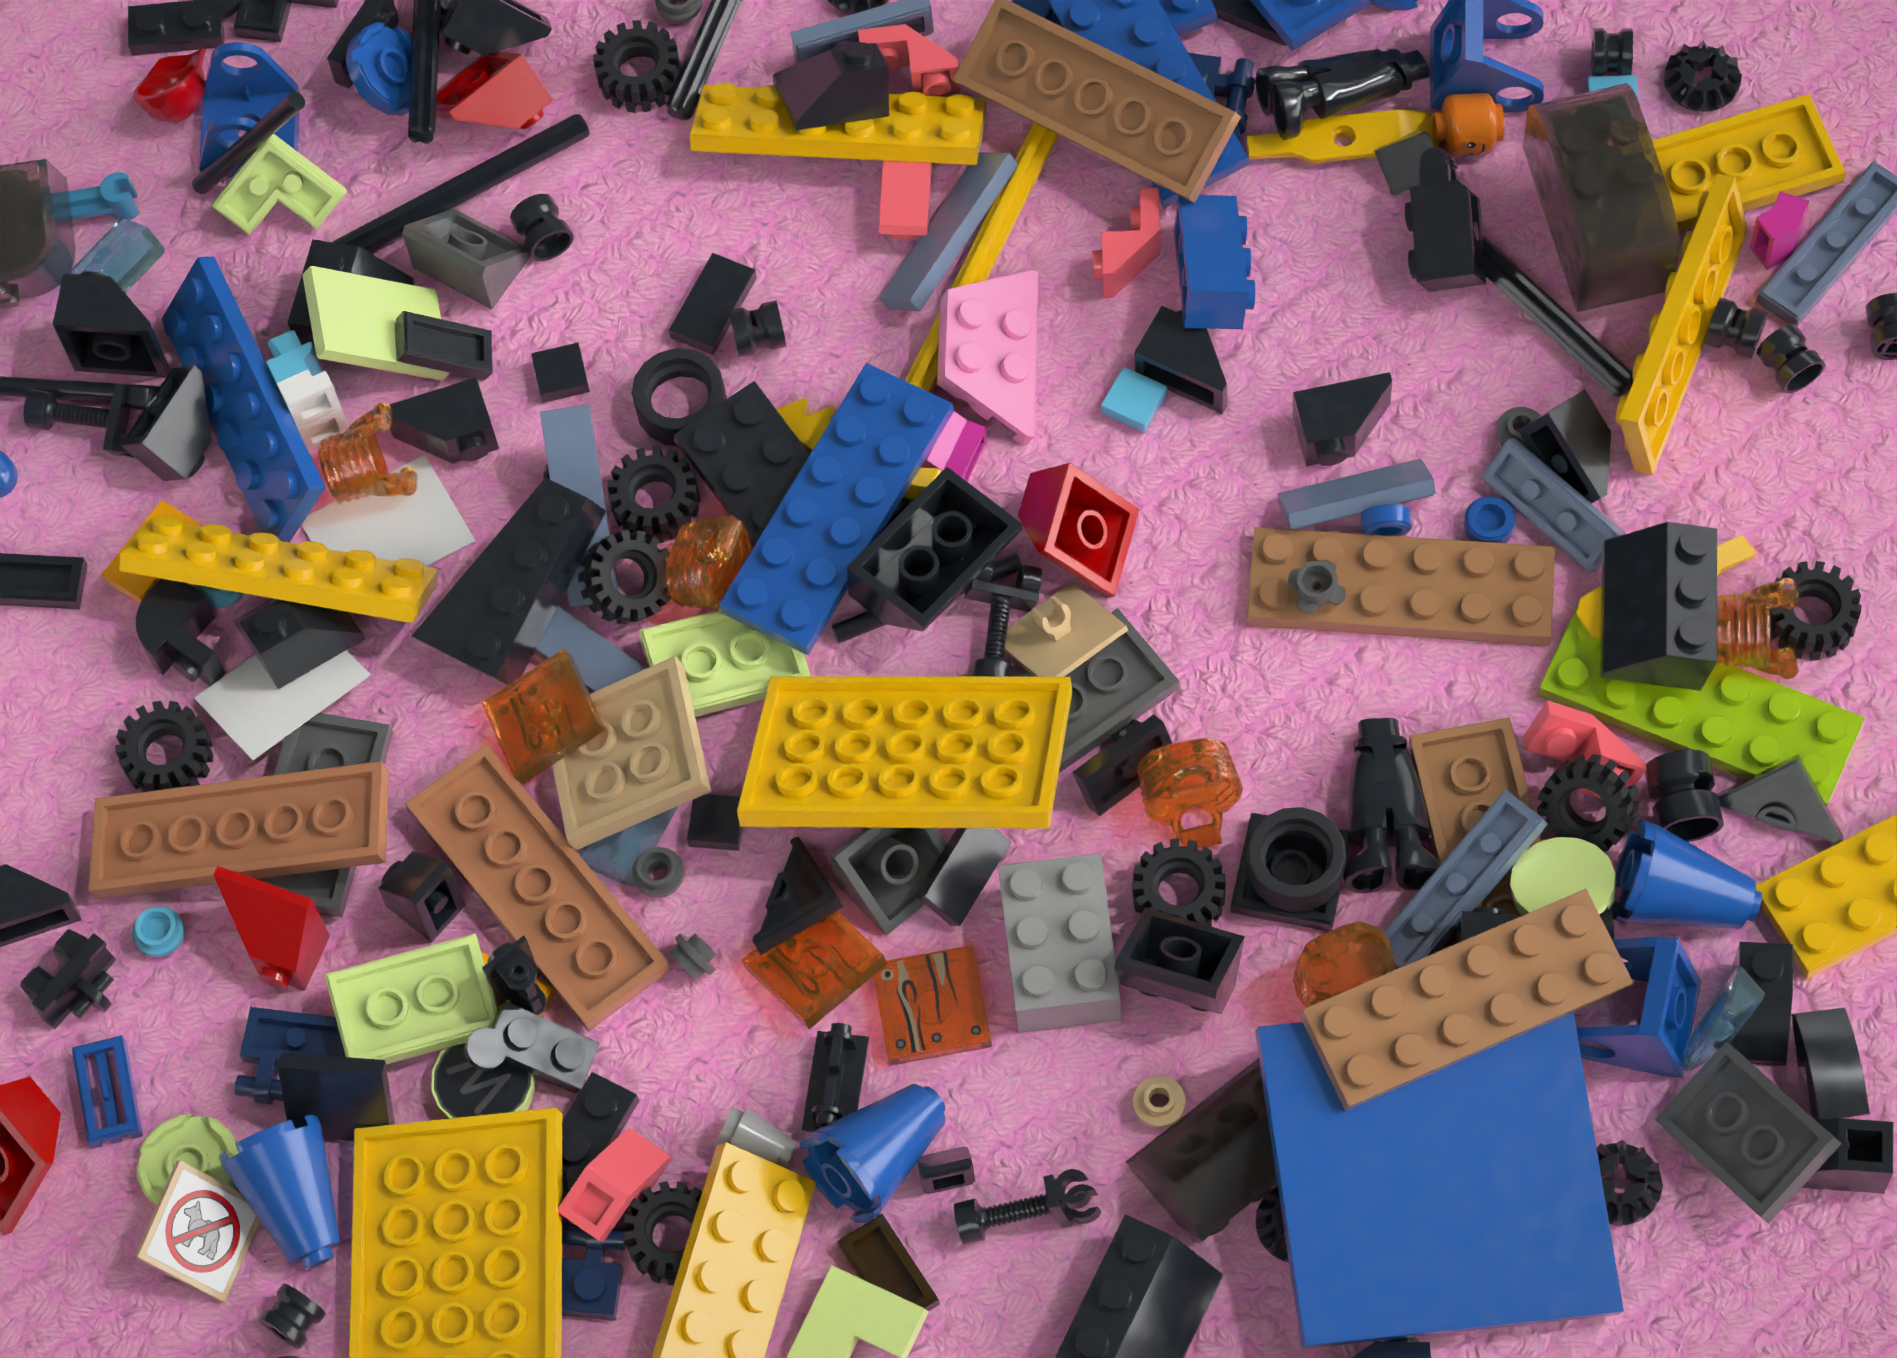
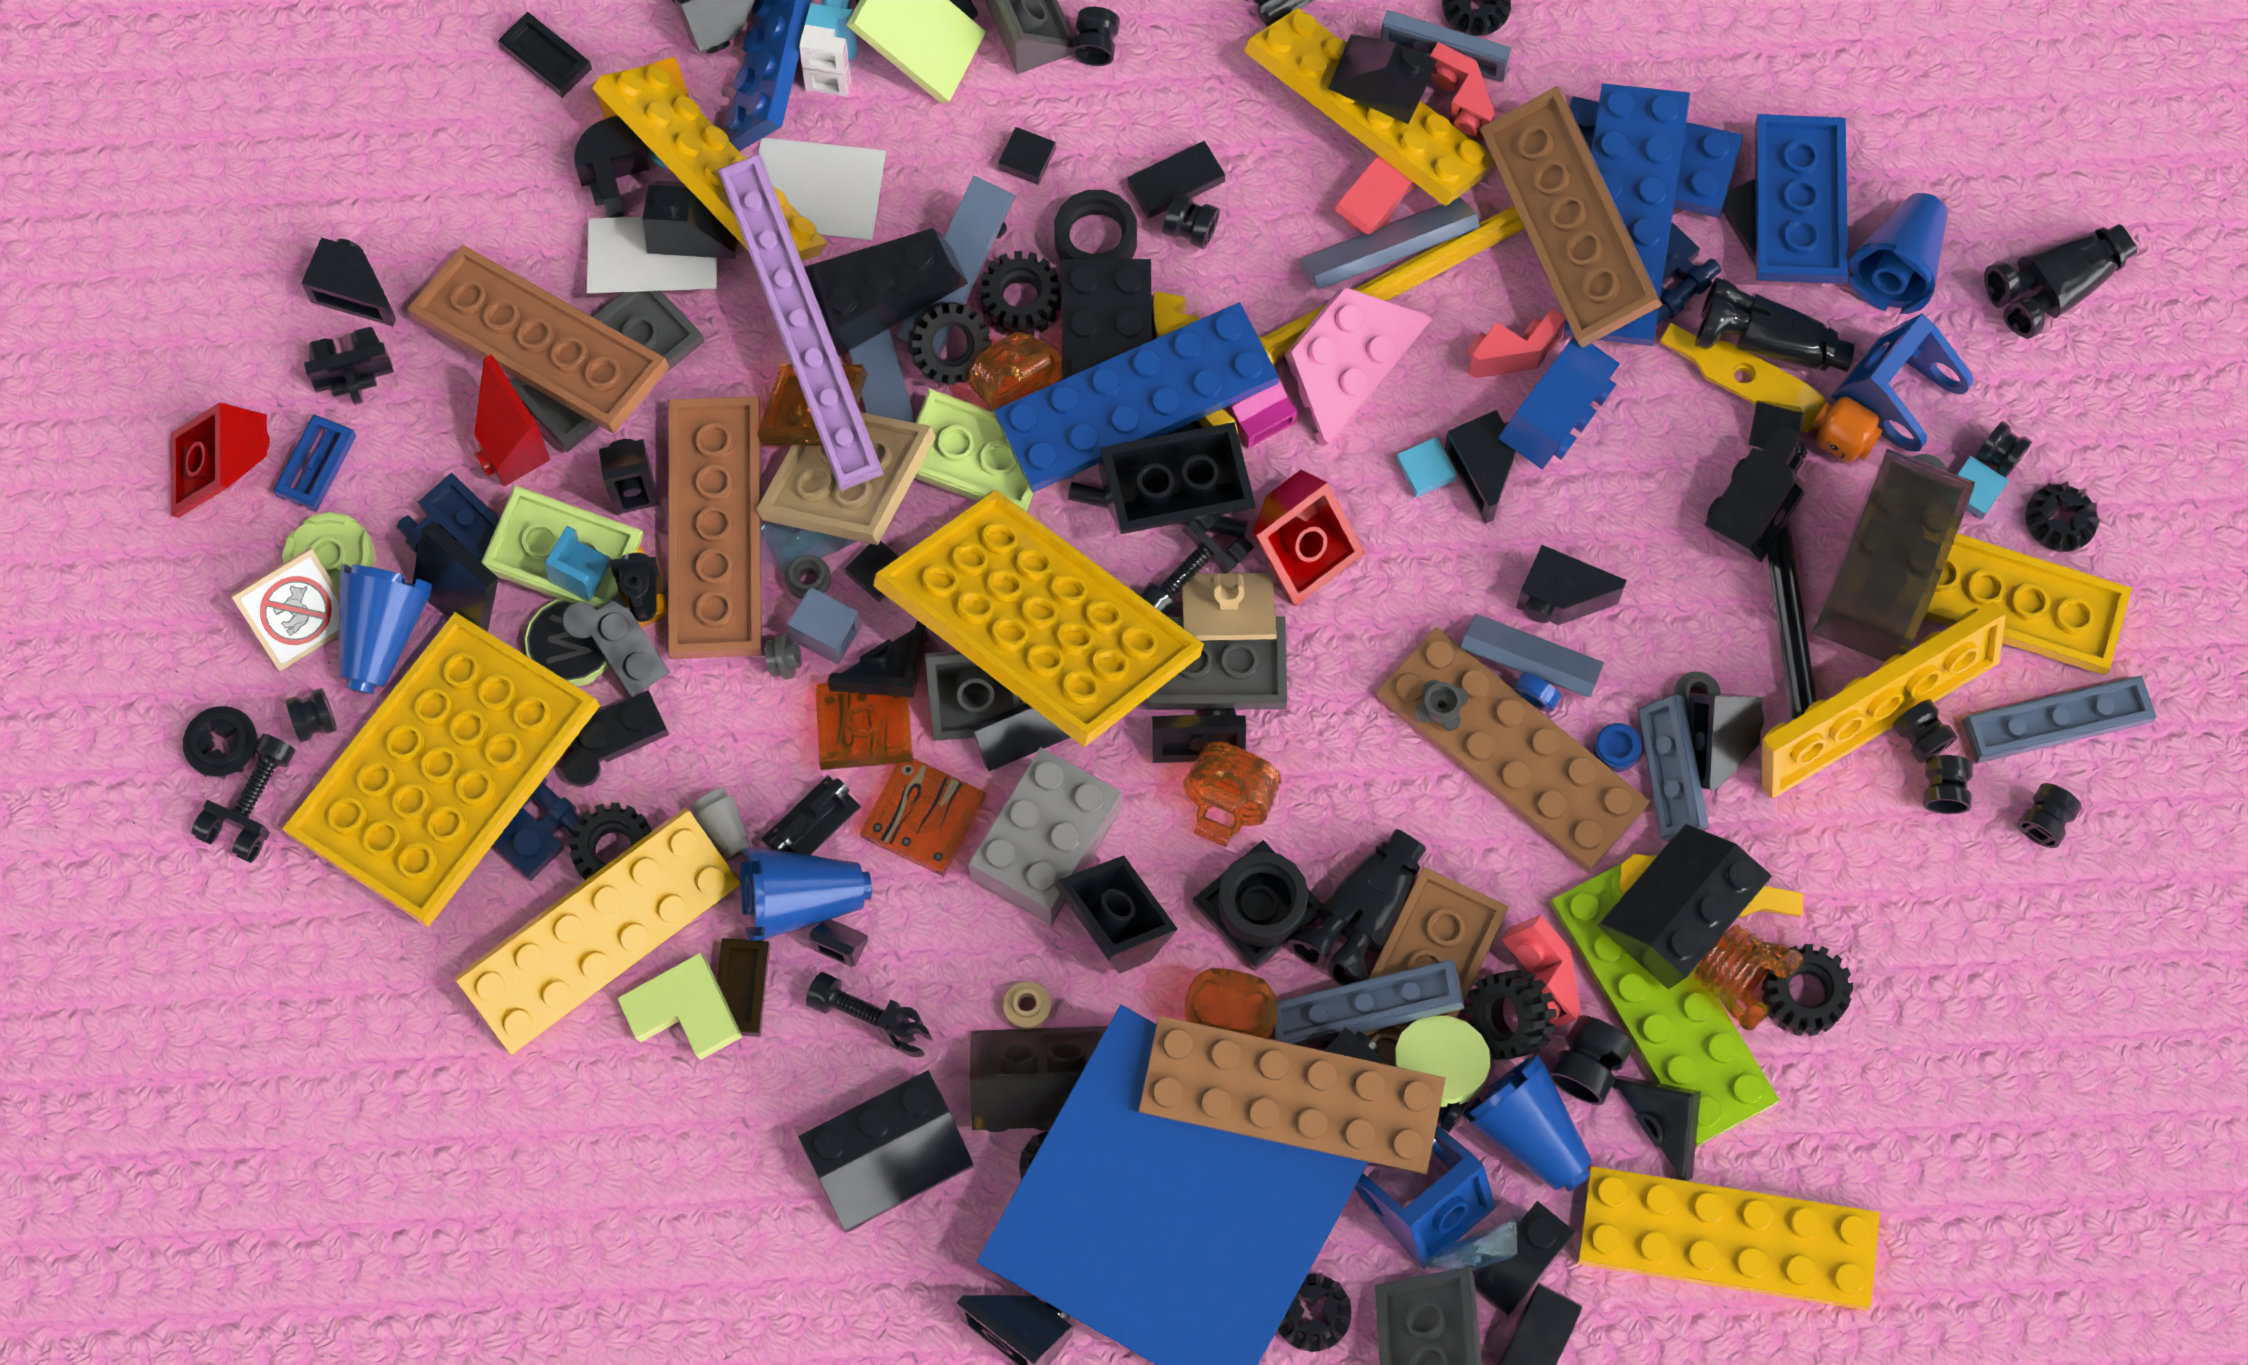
camera: 30 degrees right, 5 degrees up
(152, 726) = (531, 220): black tyre -> none
(158, 931) = (434, 372): medium azure plate -> none
(356, 464) = (827, 125): clear orange piece -> none
(444, 345) = (955, 78): black tile -> none
(446, 422) = (916, 137): black slope -> none
(446, 1004) = (576, 566): none -> dark azure panel
(484, 644) = (800, 322): none -> lavender tile
(612, 1182) = (597, 779): coral slope -> none
(709, 901) = (824, 625): none -> sand blue panel
(1180, 860) = (1176, 833): black tyre -> none
(1779, 230) = (2020, 678): dark pink piece -> none

